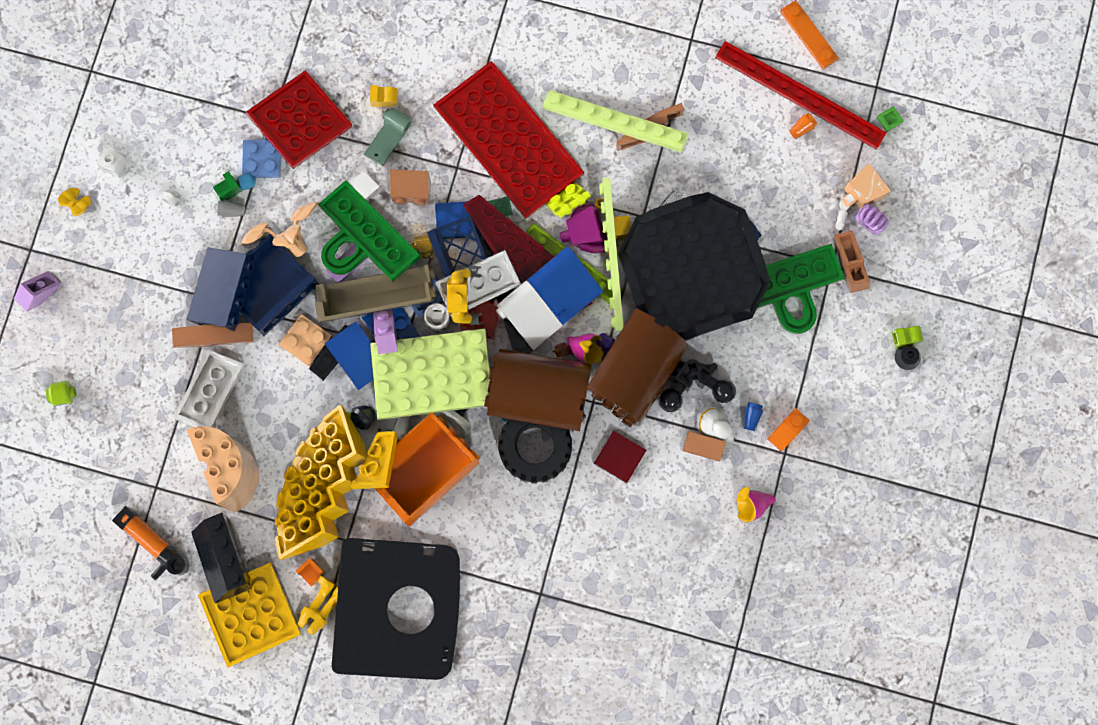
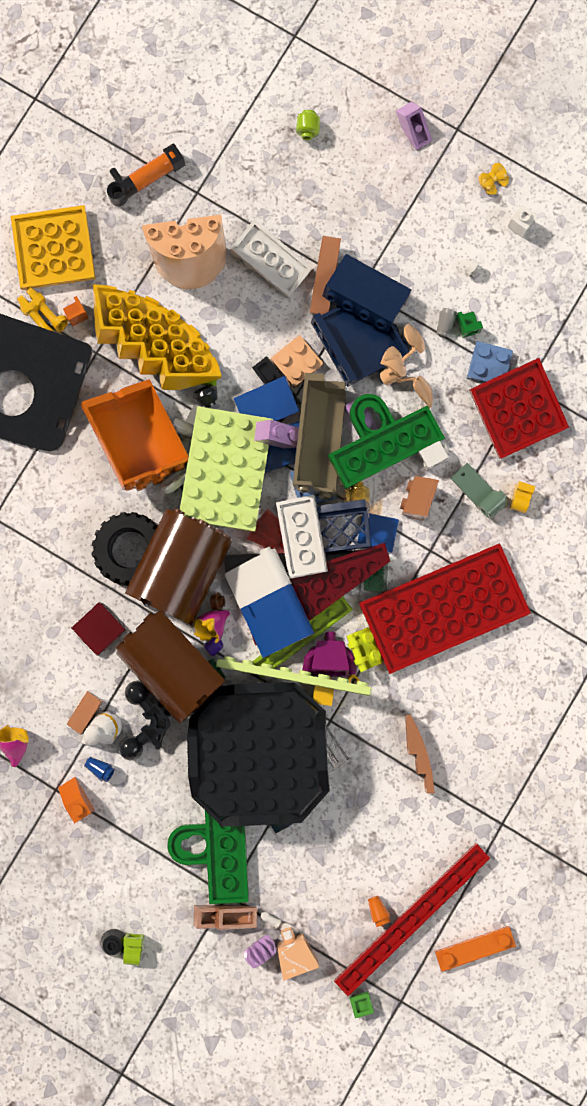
camera: 105 degrees right, 5 degrees up
(220, 558) = (109, 233): black slope -> none
(246, 181) = (470, 343): dark azure piece -> none
(378, 464) = (151, 395): yellow wing -> none
(437, 318) = (281, 489): white wheel -> none
(458, 296) = (290, 512): yellow torso -> none
(616, 121) = (432, 720): yellowish green plate -> none

